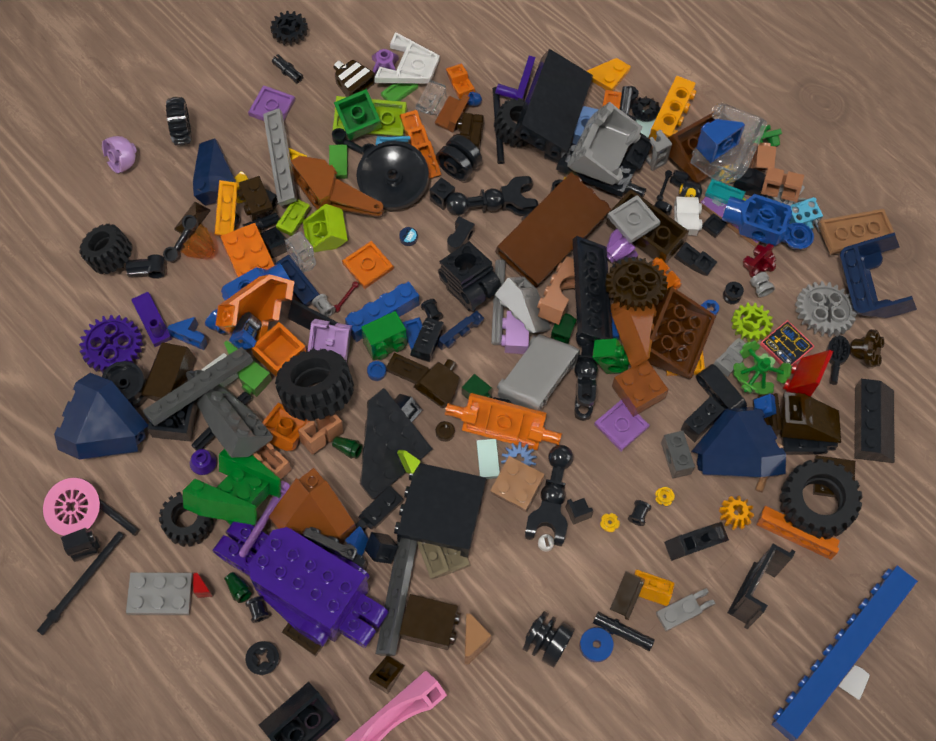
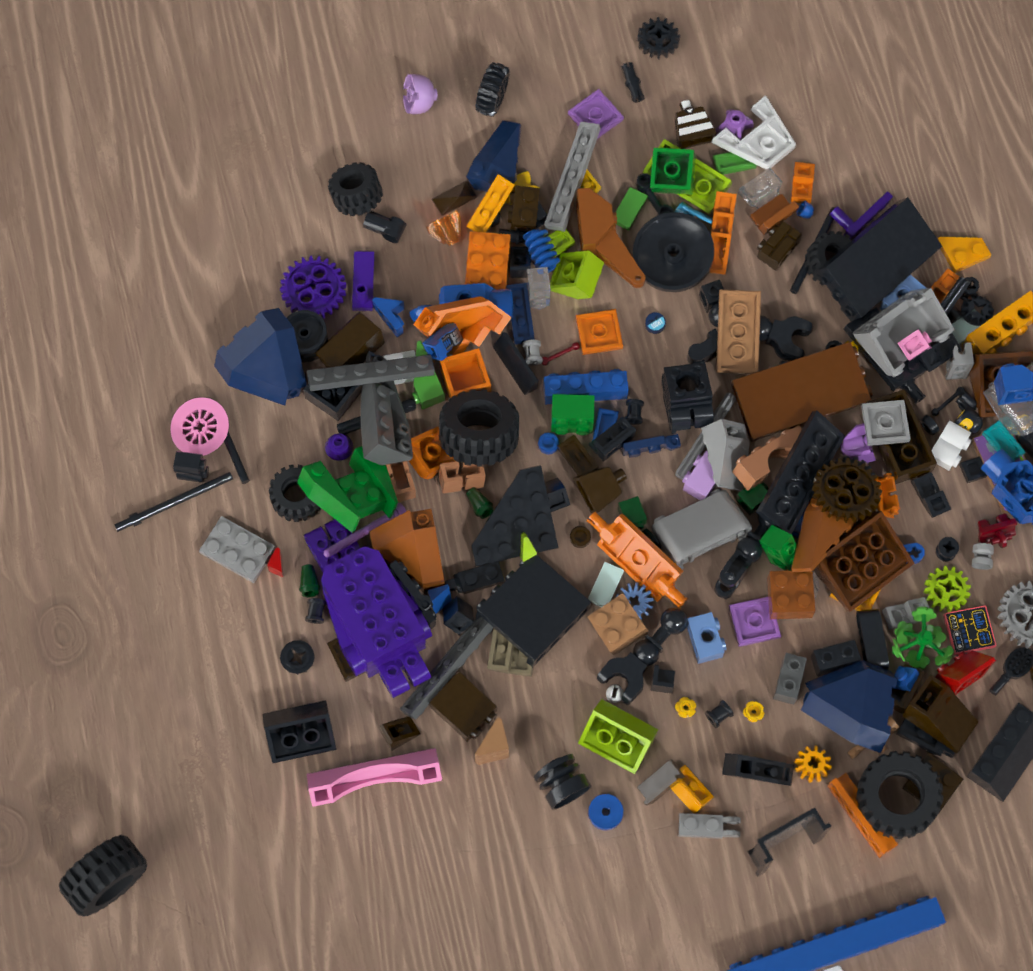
camera: 30 degrees right, 5 degrees up
(190, 224) = (418, 225): black bar -> none
(285, 221) = (540, 250): none -> blue piece
(330, 337) = (519, 389): lavender piece -> none
(459, 157) = (750, 267): black wheel -> none
(479, 208) = (738, 331): none -> medium nougat tile
(570, 575) = (617, 736): none -> lime slope
(595, 468) = (706, 650): none -> medium blue brick
(619, 151) = (915, 344): none -> bright pink bracket
(623, 631) = (632, 805): black pin -> none

